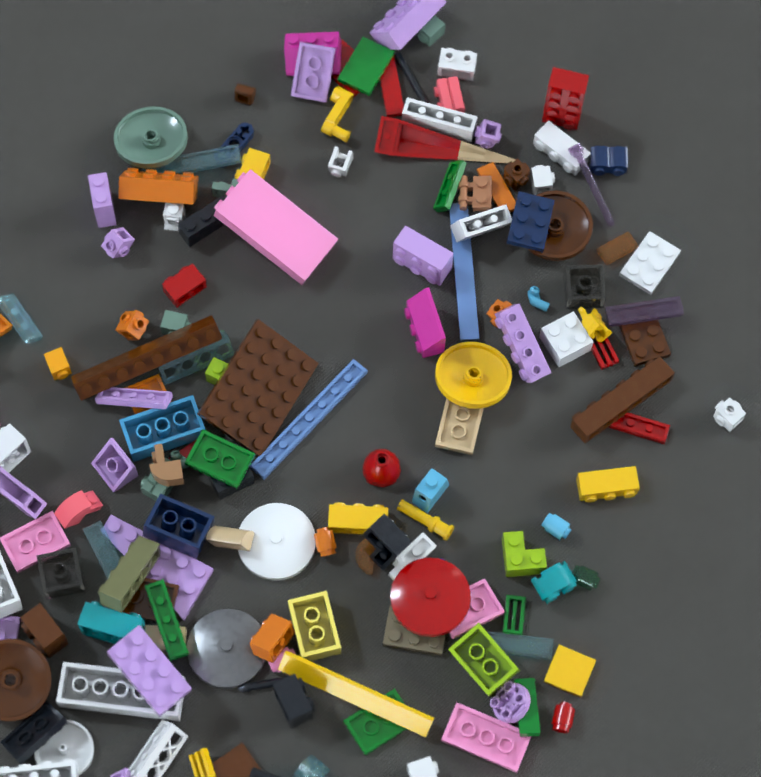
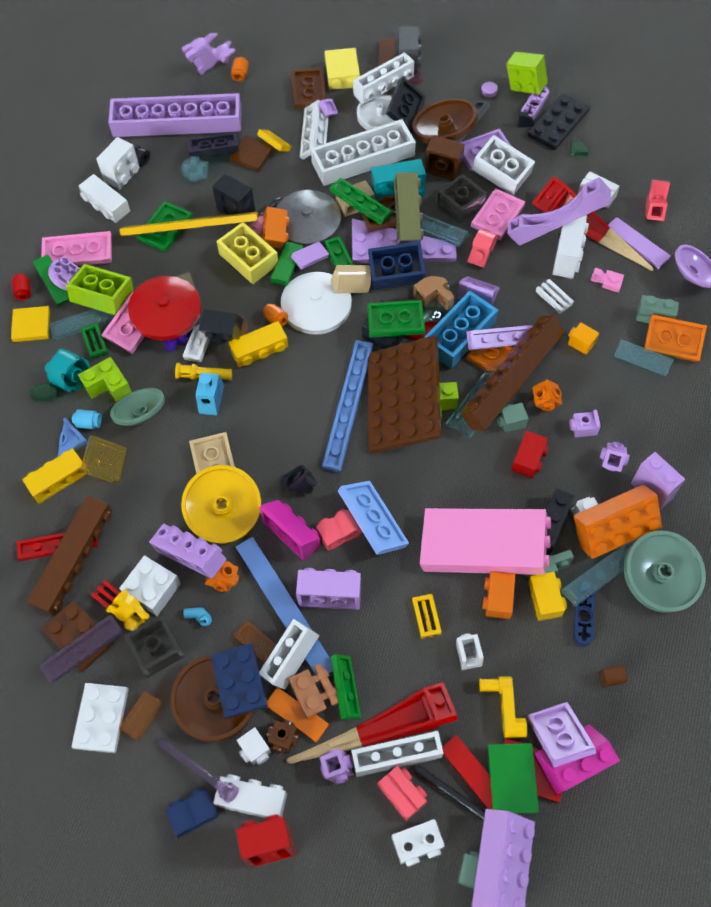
camera: 155 degrees right, 5 degrees down
(46, 409) = (557, 295): none -> white tile
(119, 293) = (585, 424): none -> lavender brick
(149, 671) = (346, 150): lavender brick -> none
(222, 578) = (337, 252): none -> green tile
(252, 594) = (310, 255): none -> lavender tile
(278, 599) = (285, 265): none -> green tile
(293, 183) = (499, 594): none -> orange brick
(350, 221) = (430, 632): none -> yellow tile
(351, 298) = (373, 517): none -> light blue plate
(381, 474) = (262, 393): red piece -> none
(385, 307) = (338, 529): none -> coral brick
(396, 363) = (299, 480): none -> black hat
(501, 257) = (262, 644): none -> clear orange tile
(514, 516) = (137, 407): none -> sand green dish
(557, 473) = (103, 459): none -> clear yellow tile
(580, 518) = (70, 438): none -> medium blue tile

